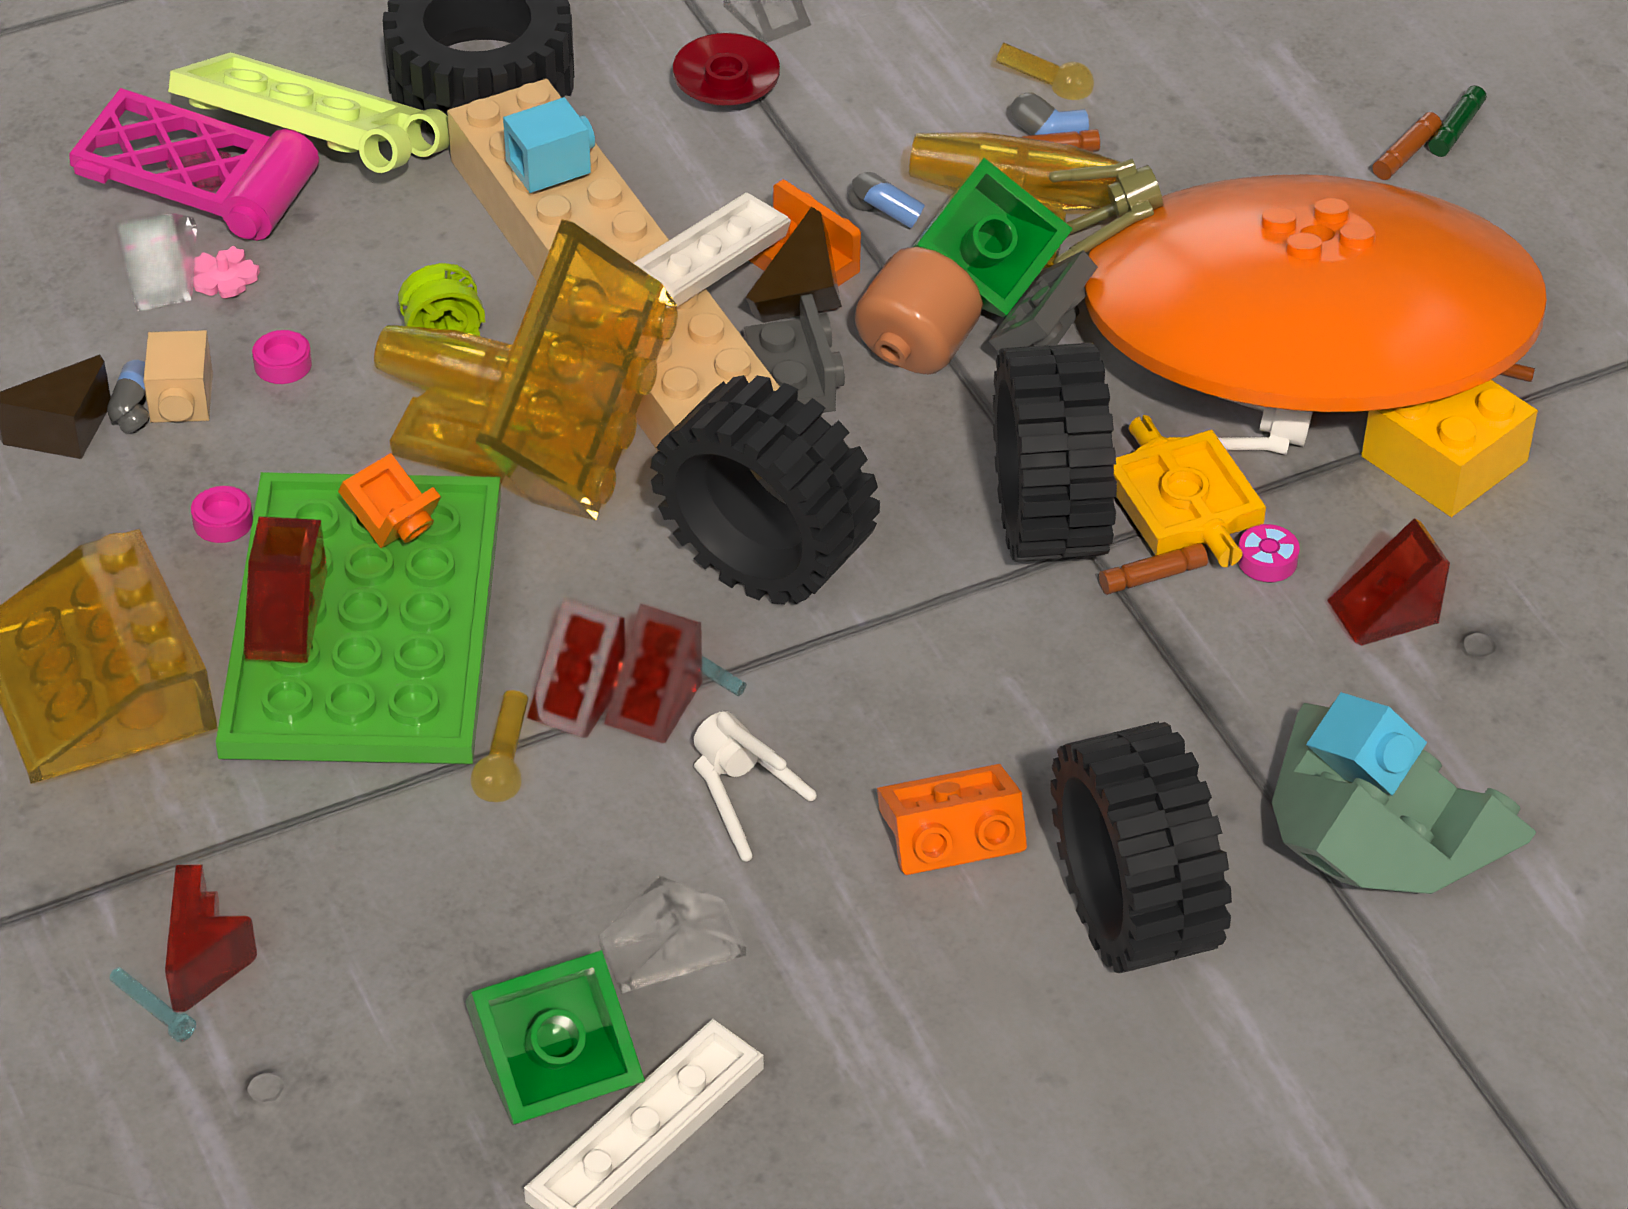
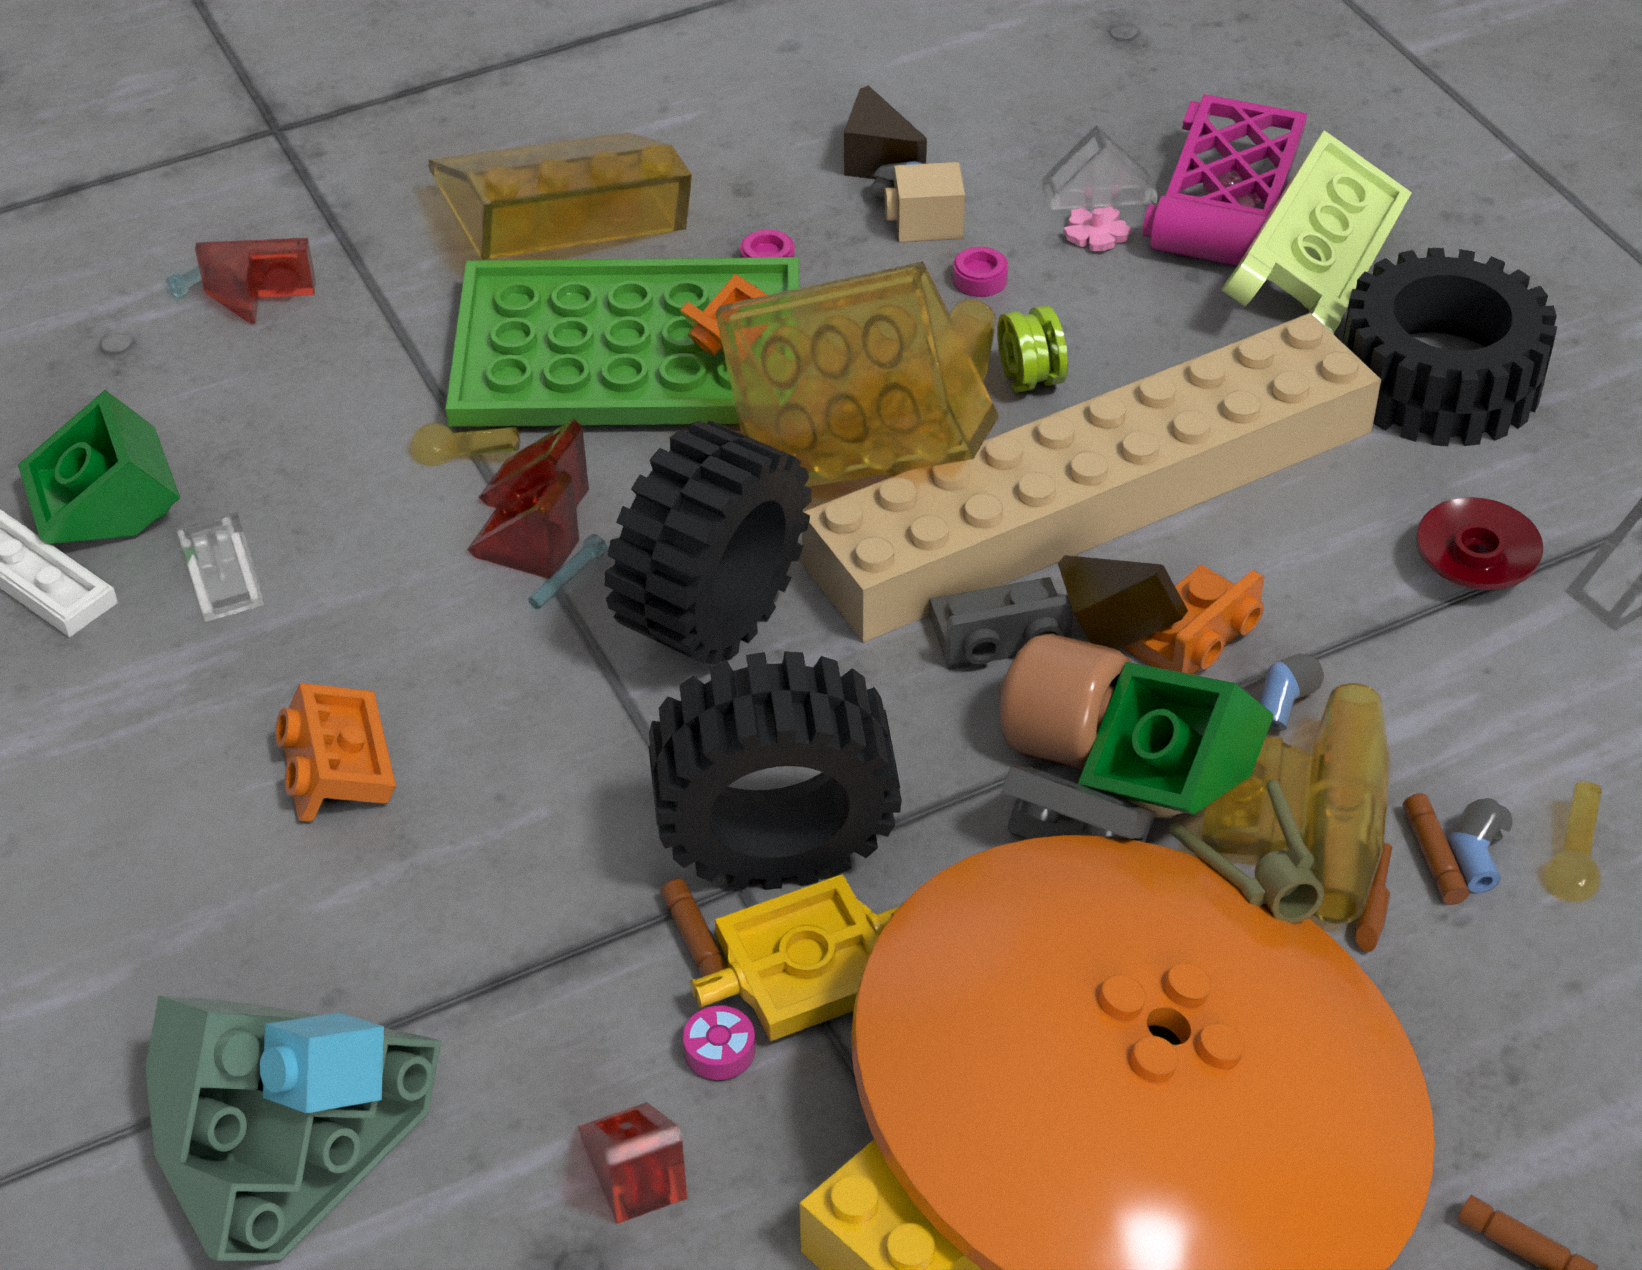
camera: 90 degrees right, 0 degrees up
(284, 588) = (609, 257): clear red slope -> none
(548, 144) = (1223, 357): medium azure brick -> none
(715, 246) = (1101, 501): white tile -> none
(733, 750) = (435, 582): white plant -> none
(1141, 846) = (169, 784): black tyre -> none

